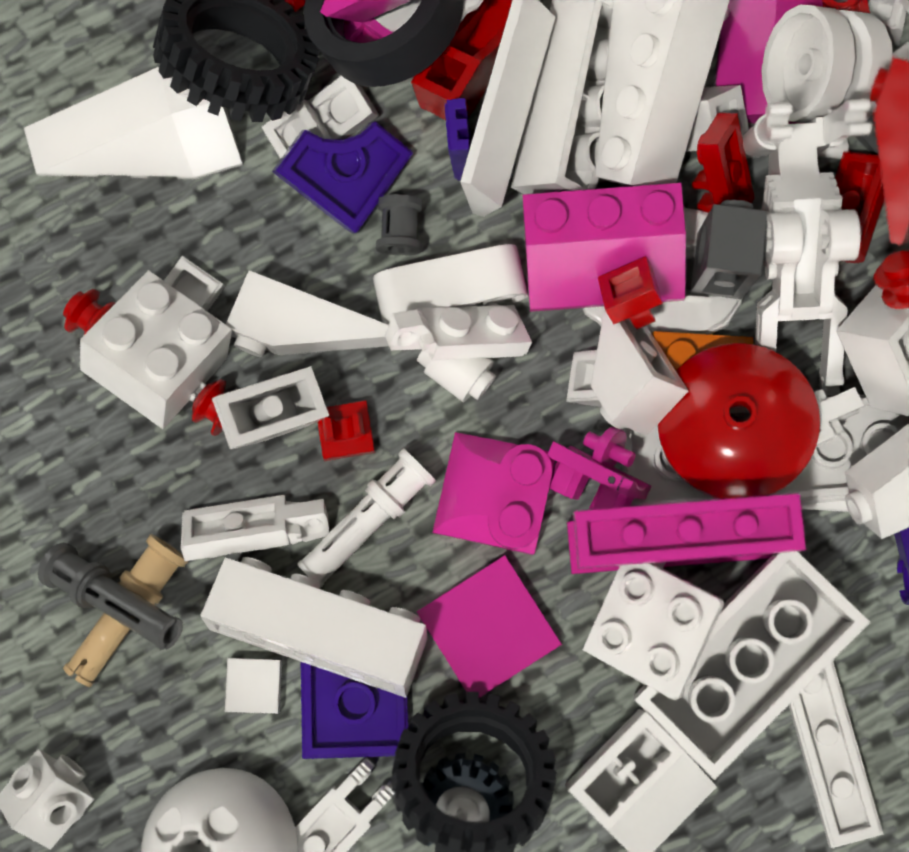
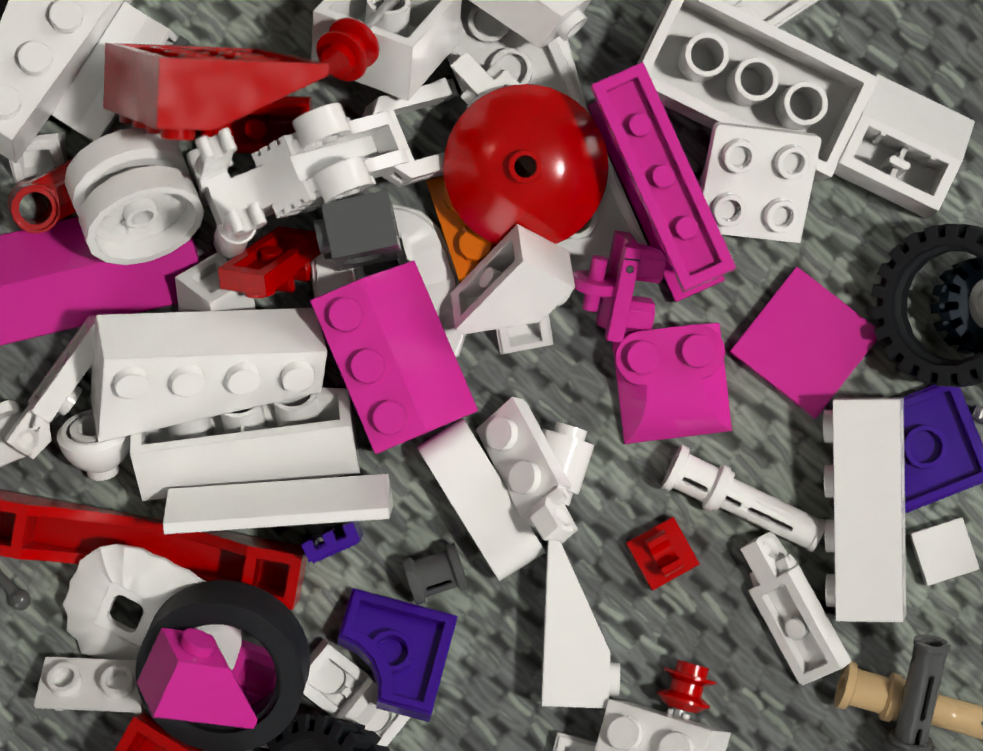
camera: 110 degrees left, 5 degrees up
(270, 408) = (675, 629): white slope -> none
(631, 293) = (436, 313): red tile -> none

